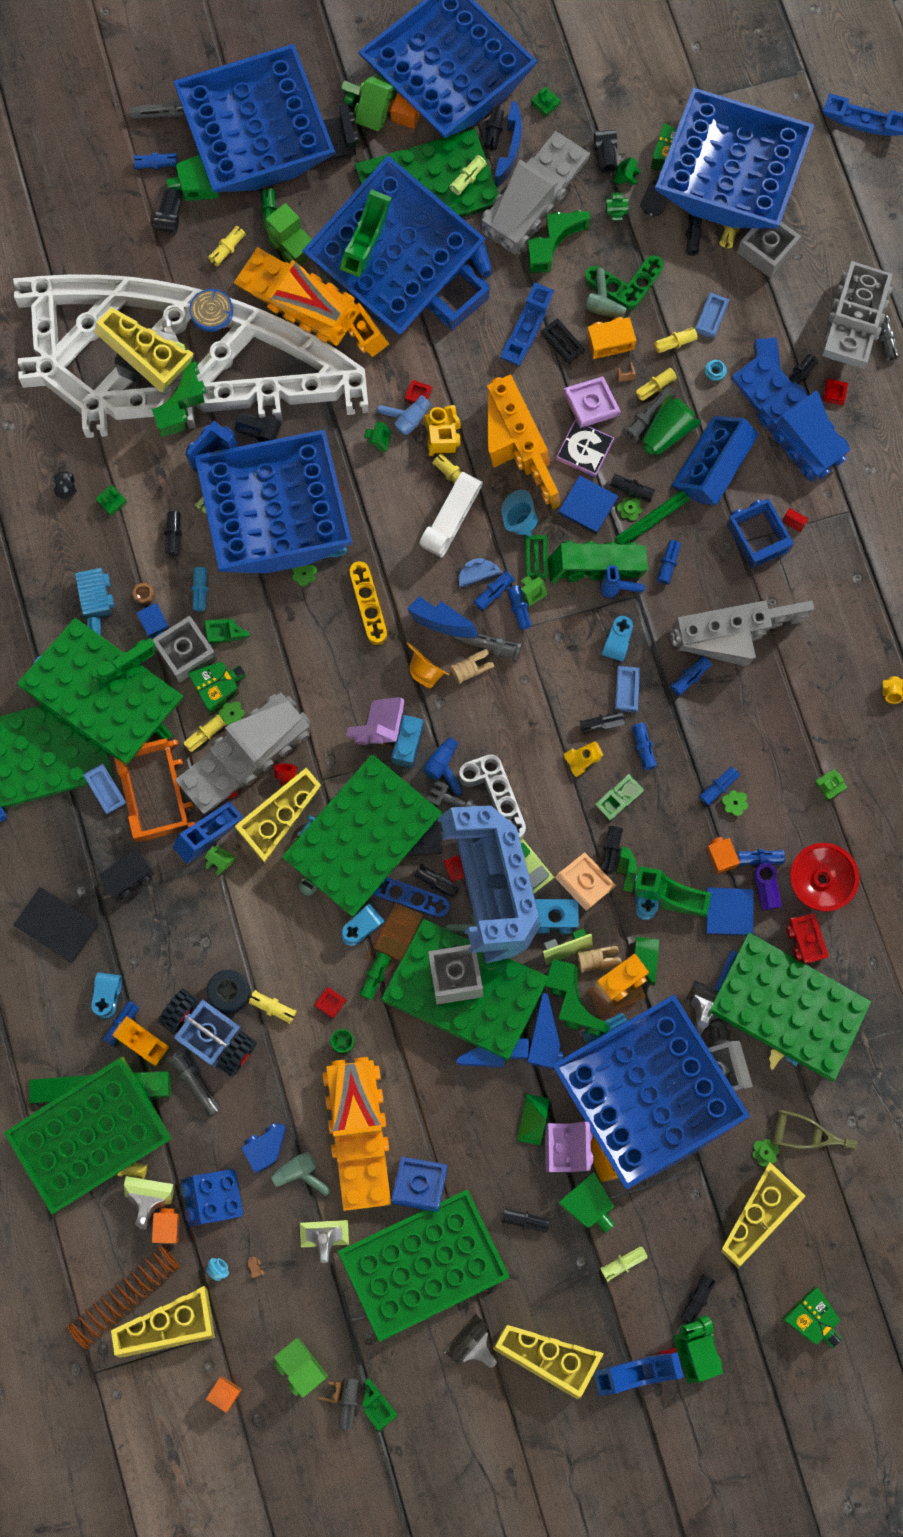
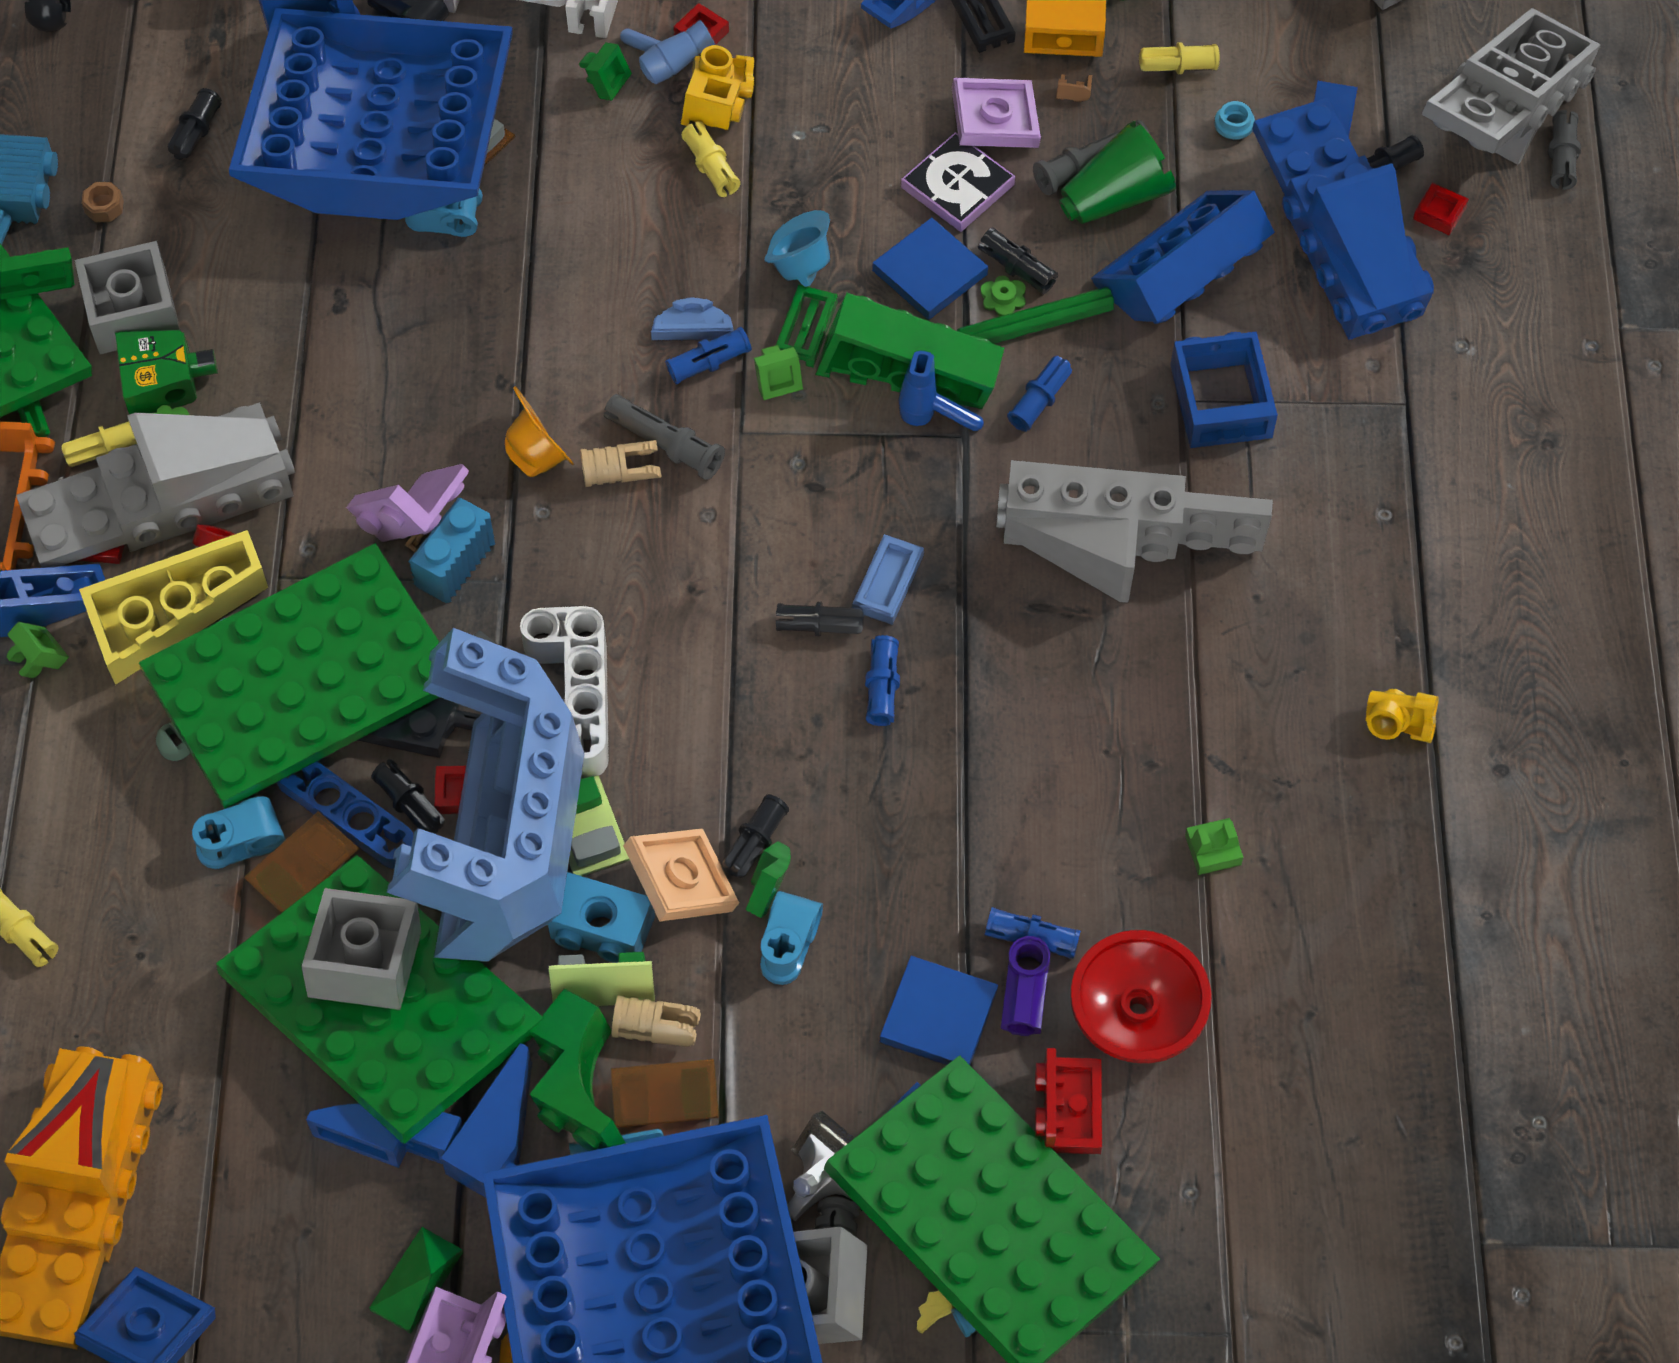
camera: 20 degrees right, 15 degrees down
(111, 500) = (116, 52): green tile -> none
(153, 621) = (95, 235): blue brick -> none
(199, 589) = (200, 218): dark azure axle -> none
(223, 631) = (211, 295): green slope -> none
(303, 580) = (389, 244): bright green plant -> none
(330, 1003) = (126, 952): red tile -> none
(342, 1041) = (109, 1014): green wheel -> none
(366, 603) = (480, 318): yellow beam -> none
(374, 976) = (226, 928): green pin -> none
(438, 765) = (496, 599): blue piece -> none
(441, 534) = (676, 218): white beam -> none
(441, 619) = (593, 368): blue slope -> none
(515, 435) = (833, 123): light orange wedge -> none
(519, 607) = (742, 393): blue axle -> none
(579, 760) = (764, 663): yellow plate -> none
(617, 641) = (900, 488): dark azure piece -> none
(620, 797) = (803, 757): slope -> none
(622, 978) = (680, 1060): light orange brick -> none
(647, 952) = (747, 1045): green slope -> none
(656, 384) = (1120, 115): light yellow axle -> none
(672, 895) = (836, 948): green arch -> none
(690, 675) = (1036, 578): blue pin -> none
(712, 315) = (1258, 40): medium blue tile -> none
(719, 786) = (998, 786): blue axle -> none
(722, 855) = (959, 906): orange brick -> none
(740, 798) = (1020, 815): bright green plant -> none
(795, 520) = (1295, 385): red tile -> none

